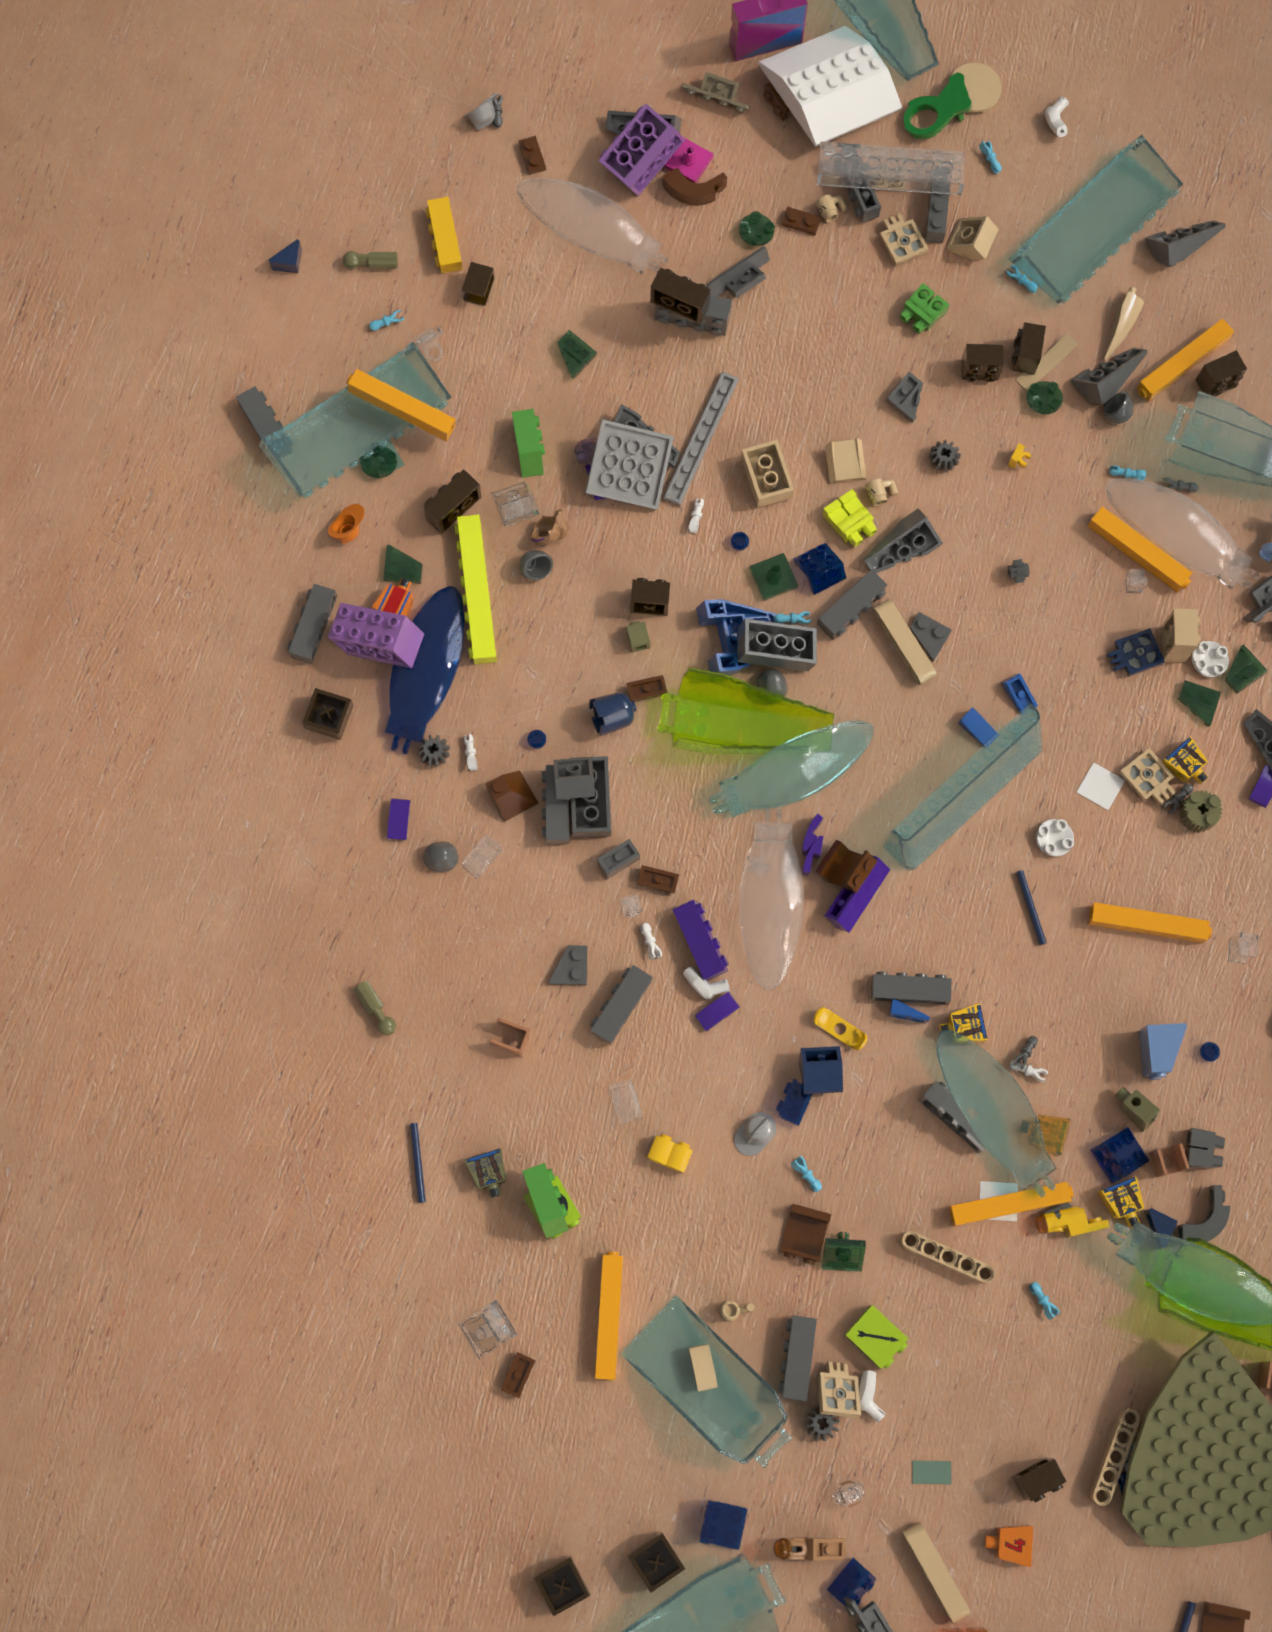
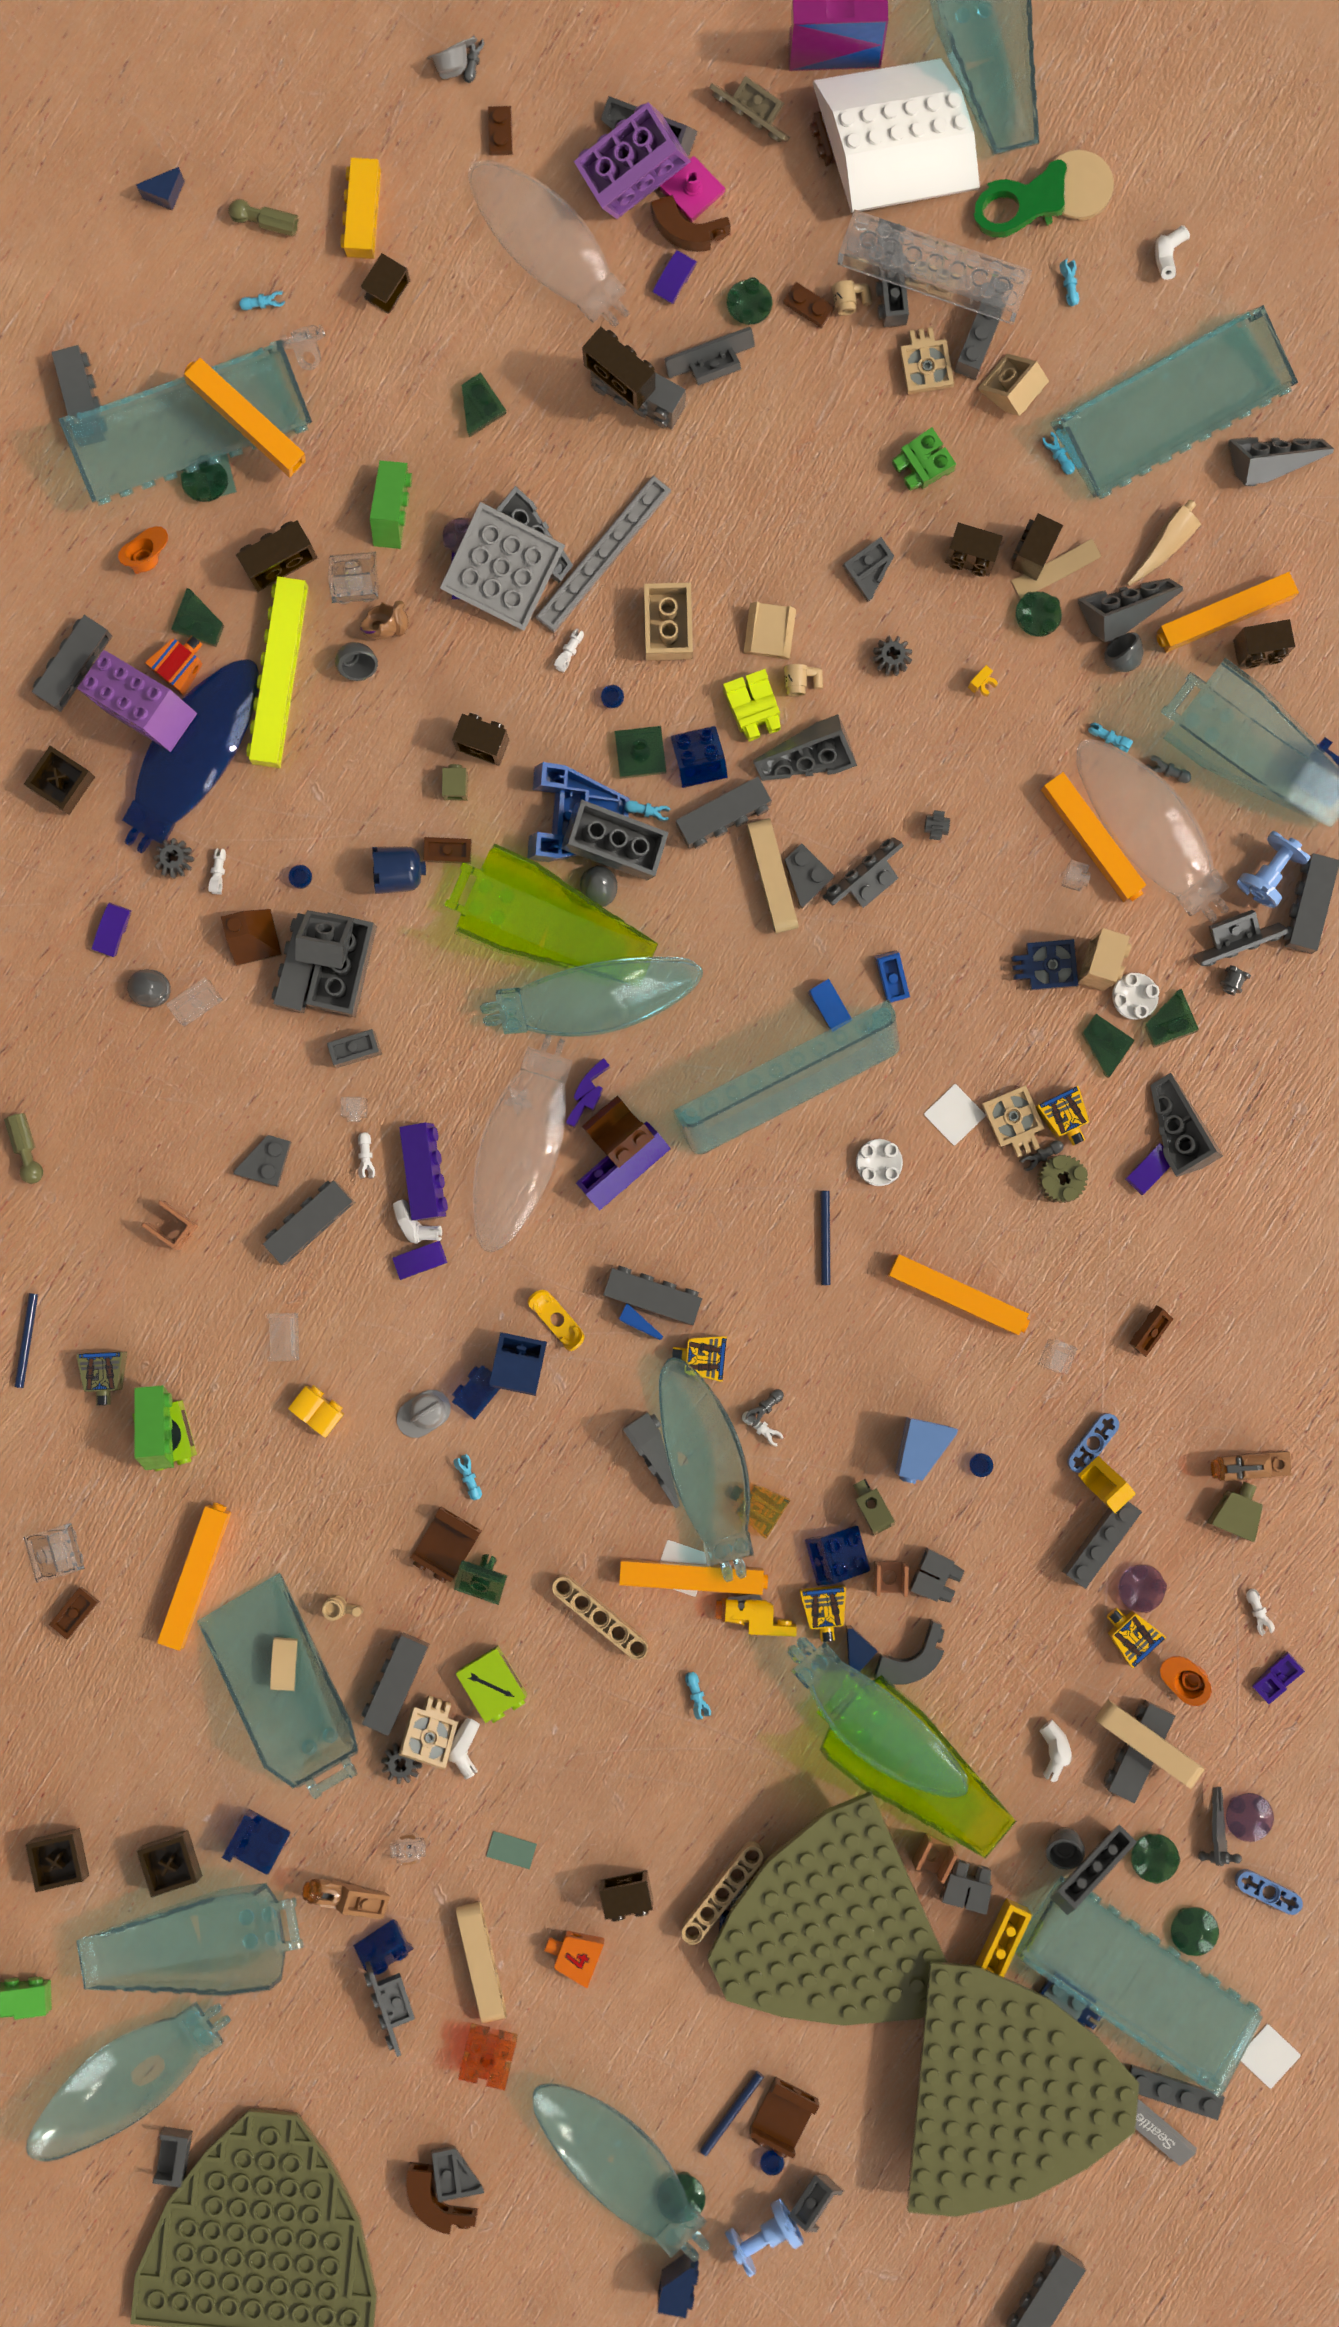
camera: 20 degrees right, 10 degrees up
(658, 879) = (395, 1085): reddish brown plate -> none
(695, 225) = (674, 276): none -> dark purple slope
(978, 624) = (868, 878): none -> dark grey bracket

